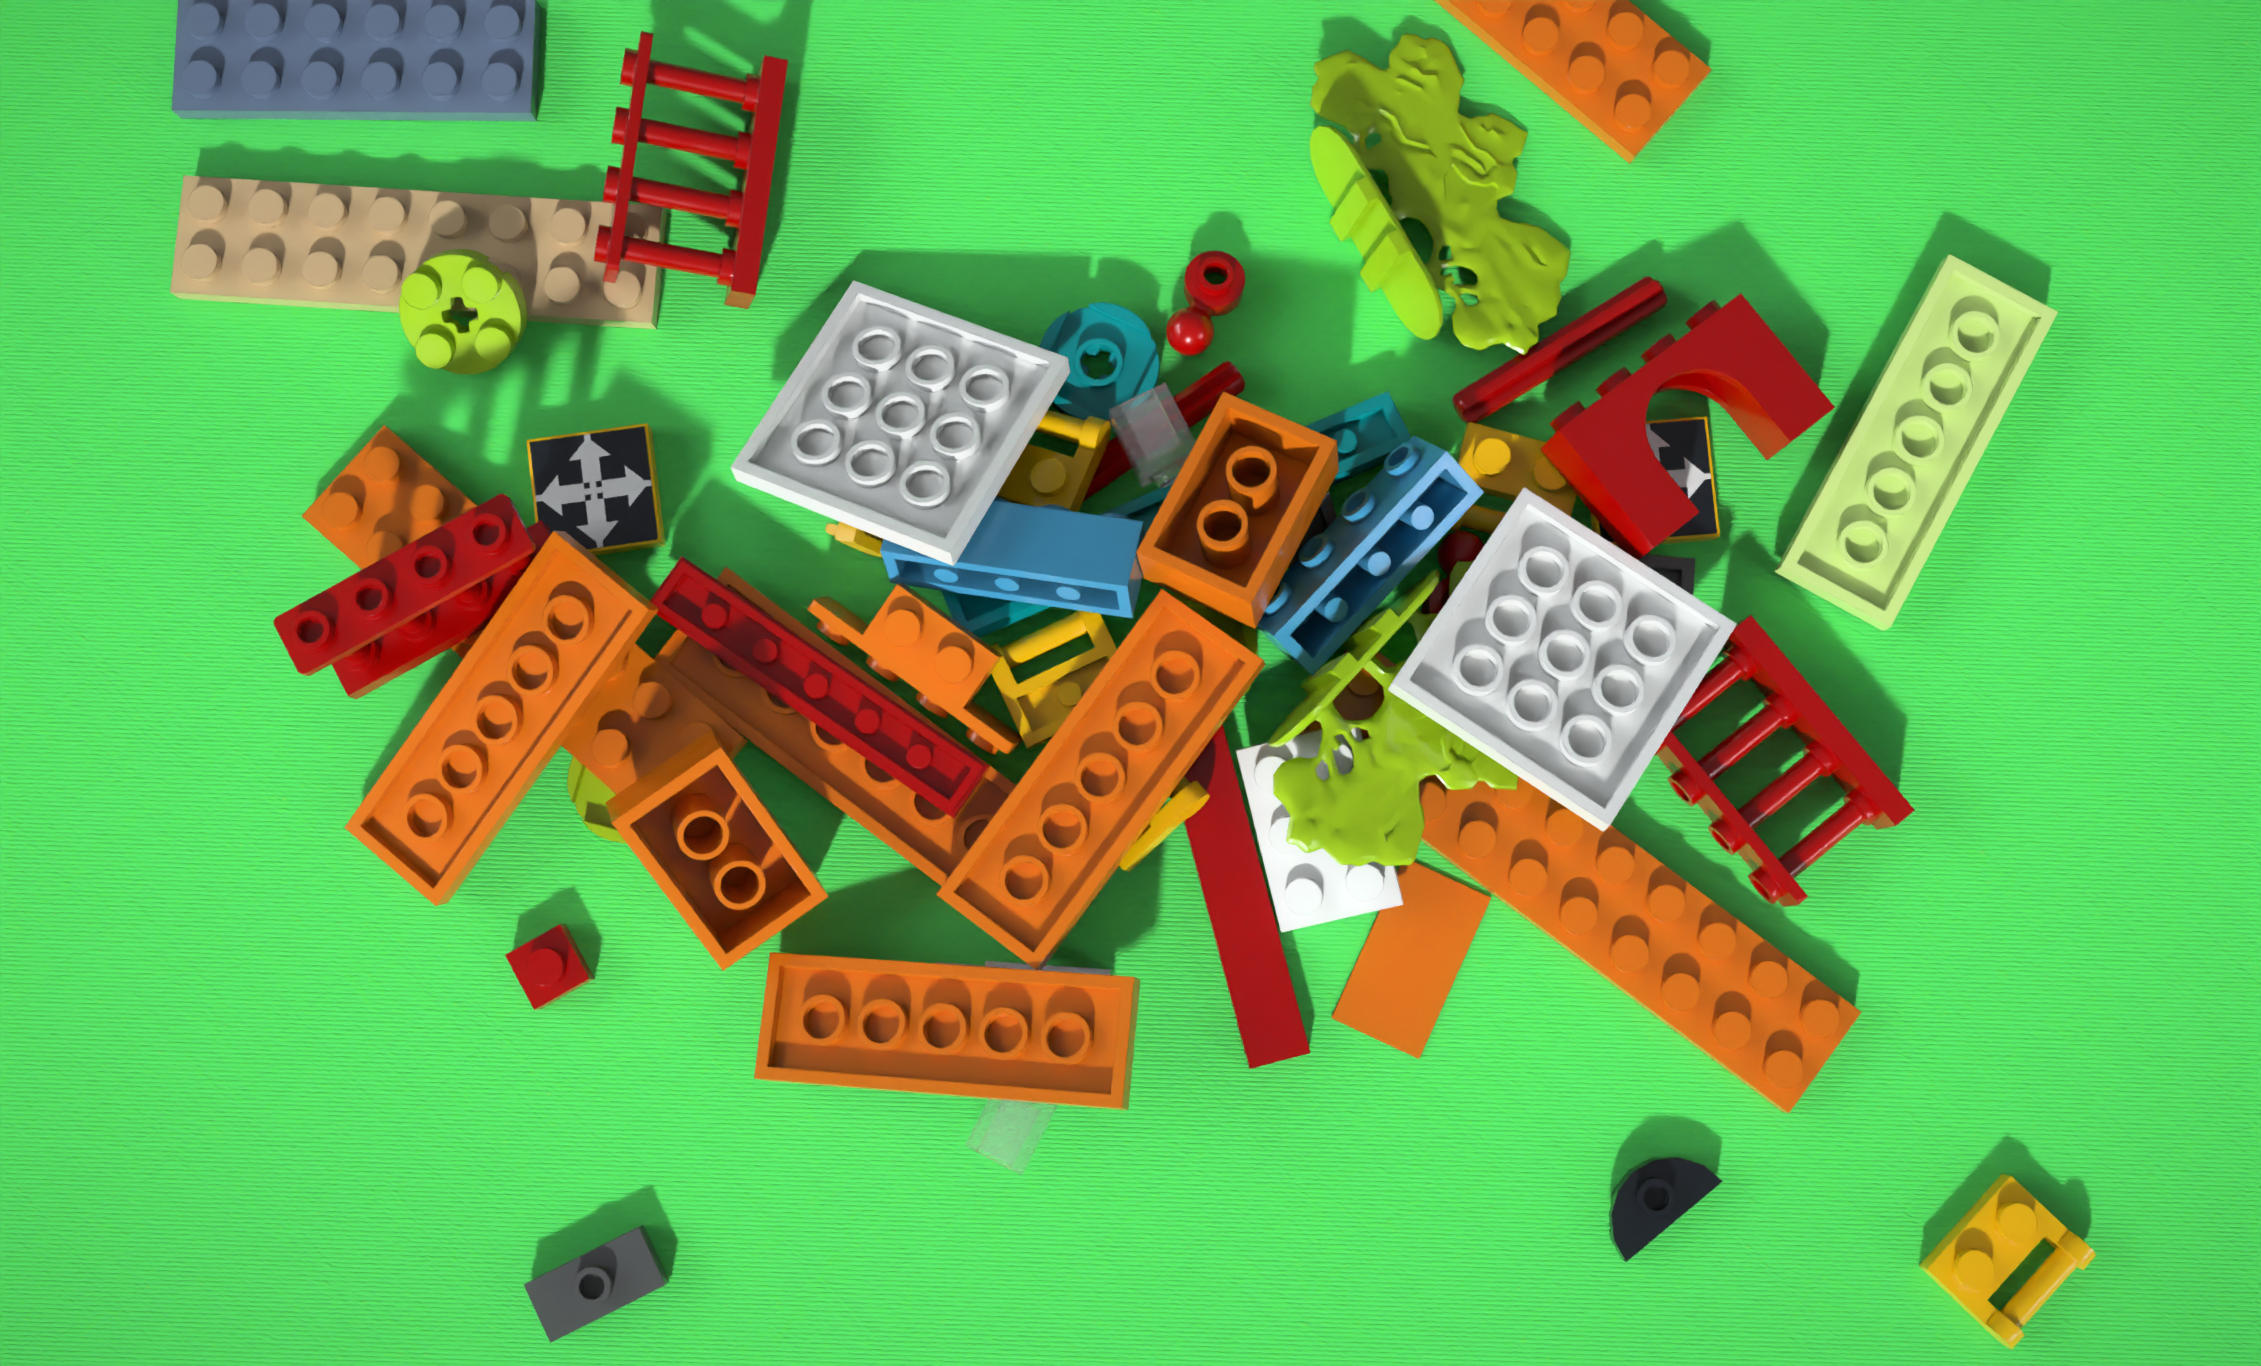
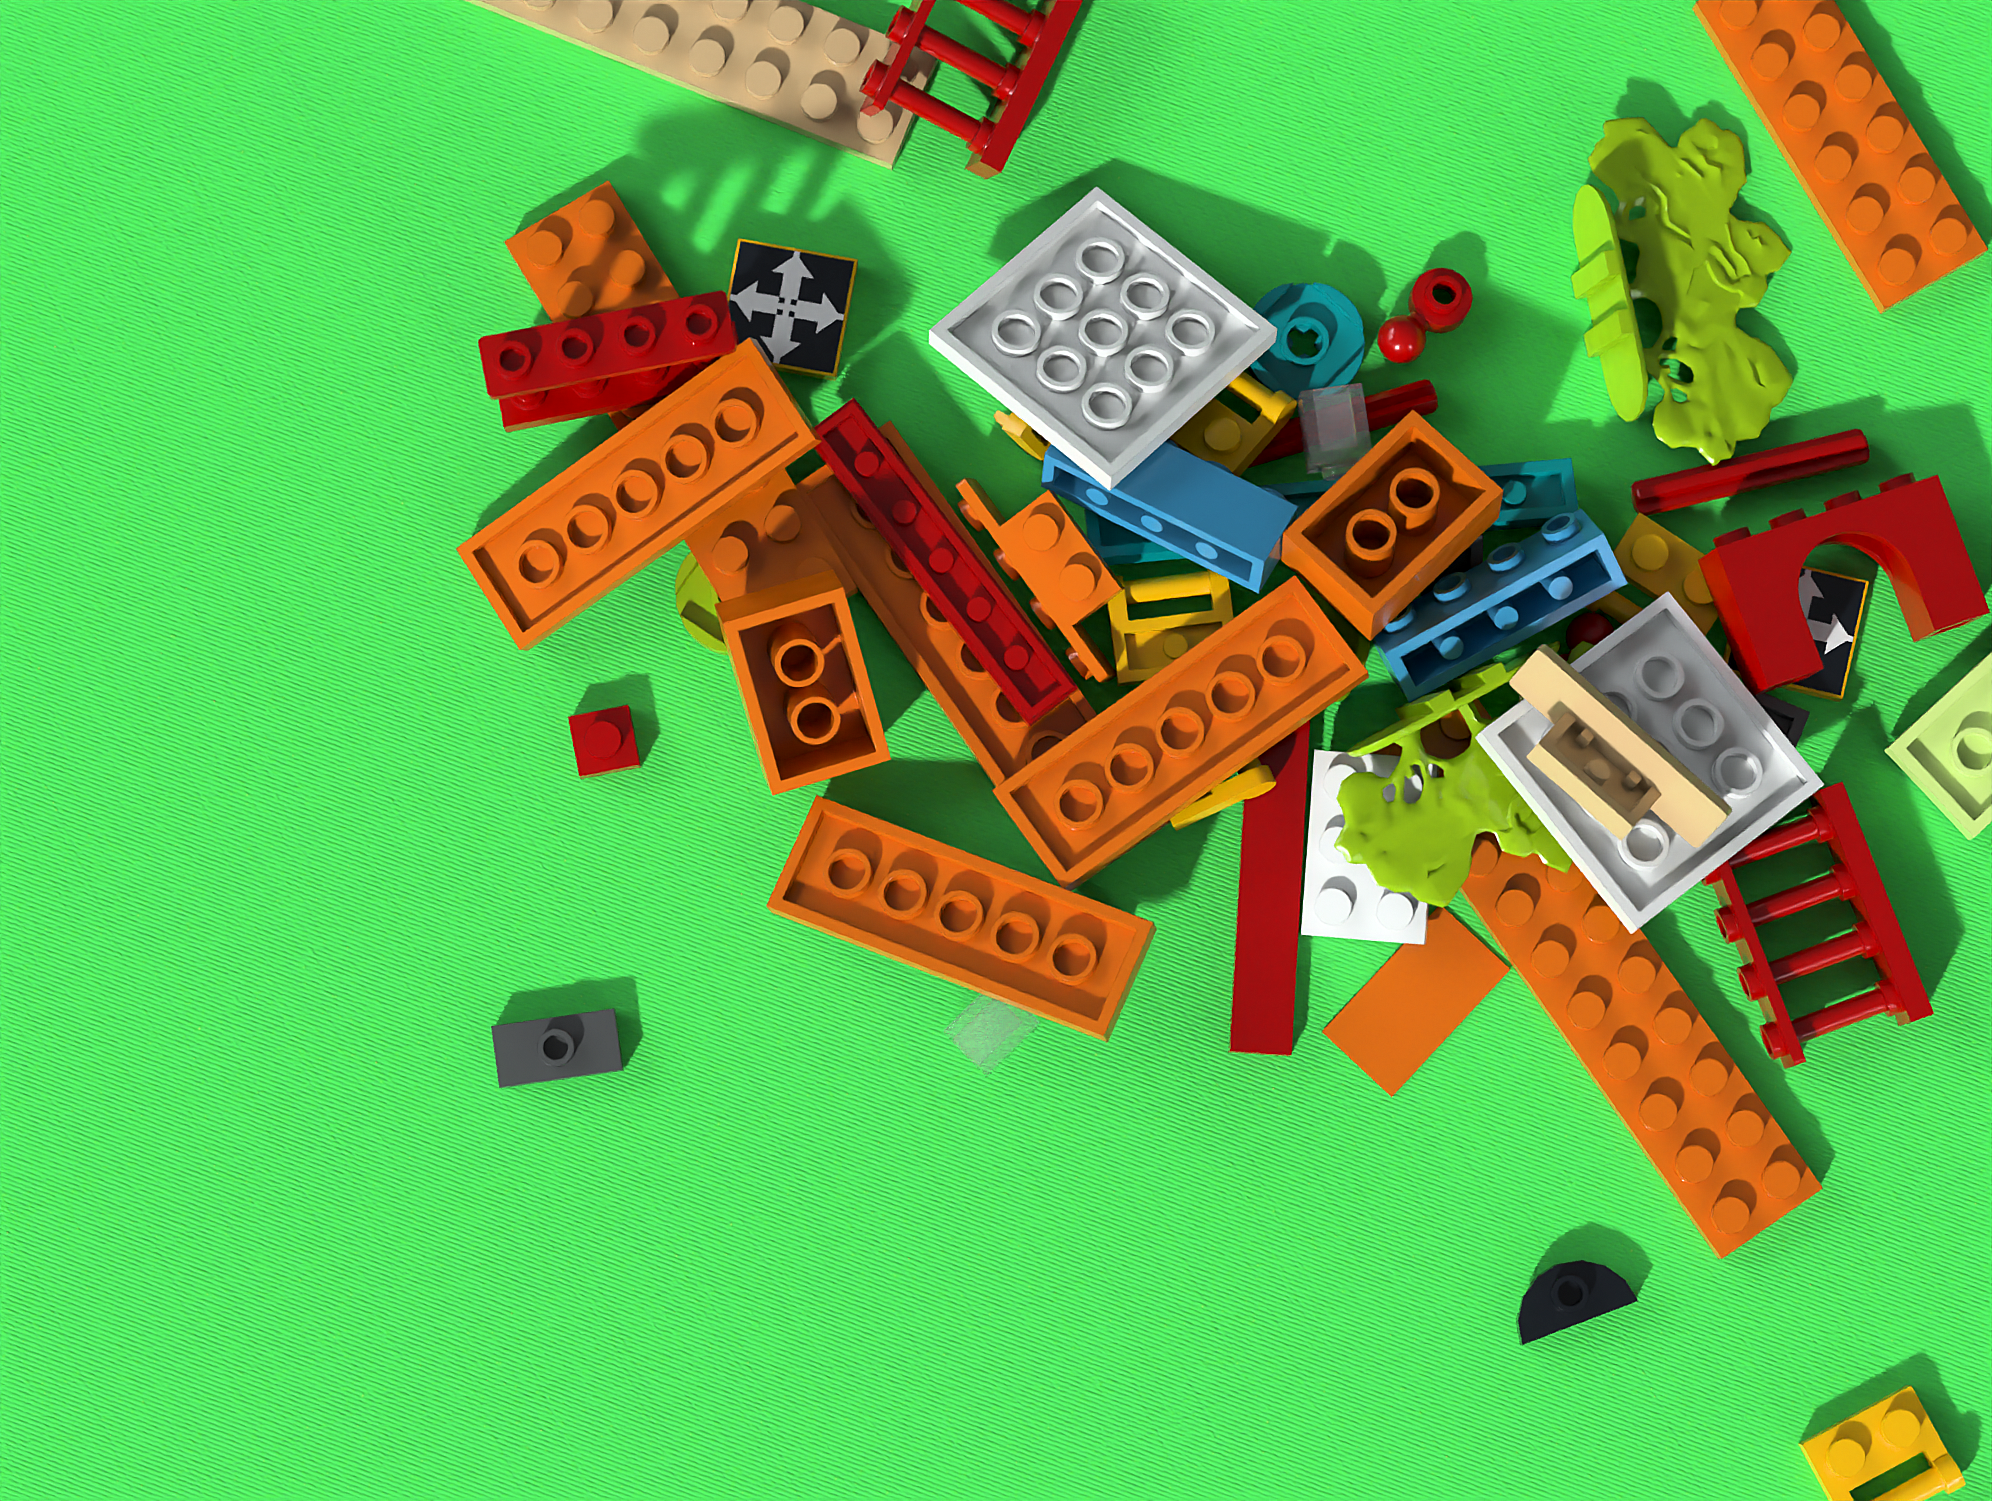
camera: 15 degrees right, 0 degrees up
(481, 285) = (746, 79): lime plate -> none
(1526, 668) = (1610, 759): none -> tan bracket

